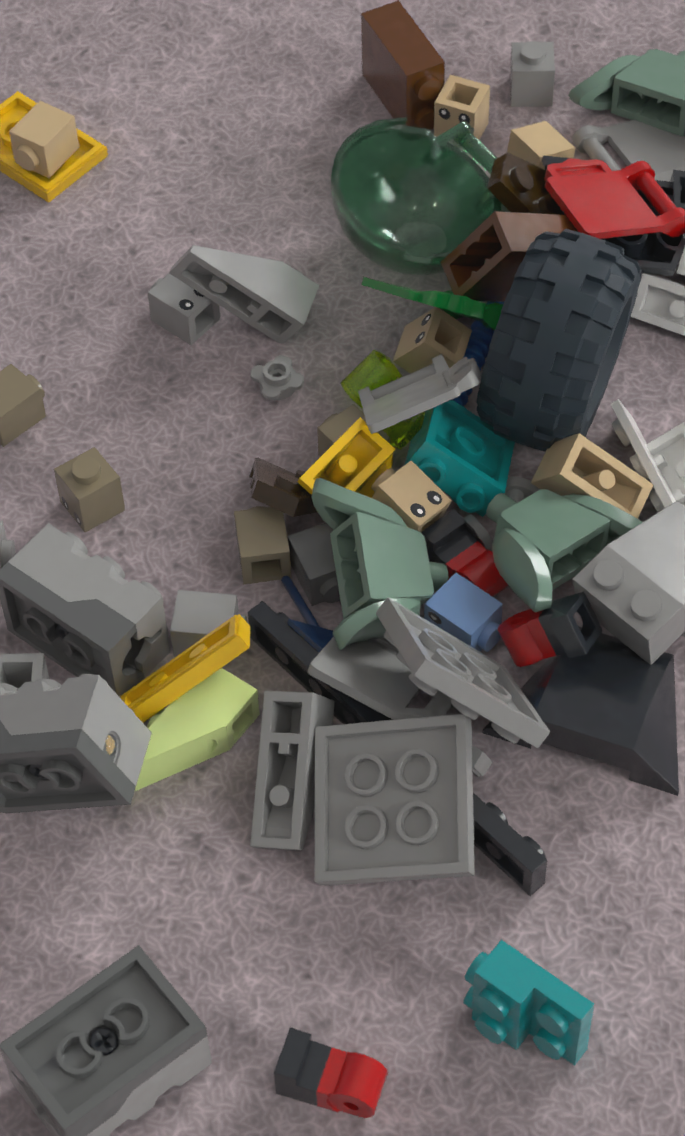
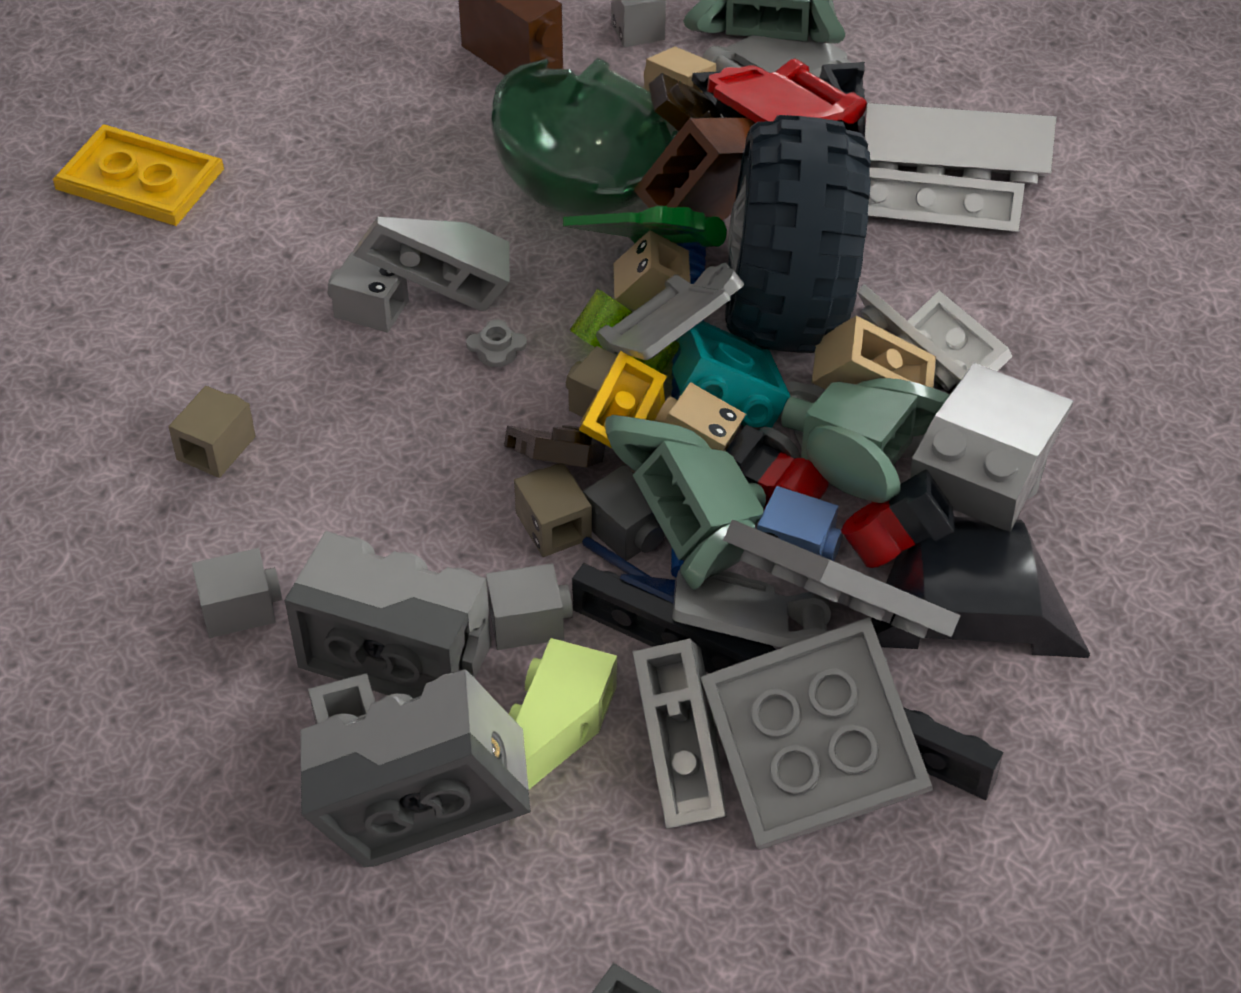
camera: 20 degrees left, 5 degrees down
(44, 139) = (155, 159): tan brick -> none
(89, 489) = (340, 494): dark tan brick -> none
(189, 668) = (541, 644): yellow tile -> none
(460, 102) = (584, 43): tan brick -> none
(520, 998) = (1056, 904): teal plate -> none

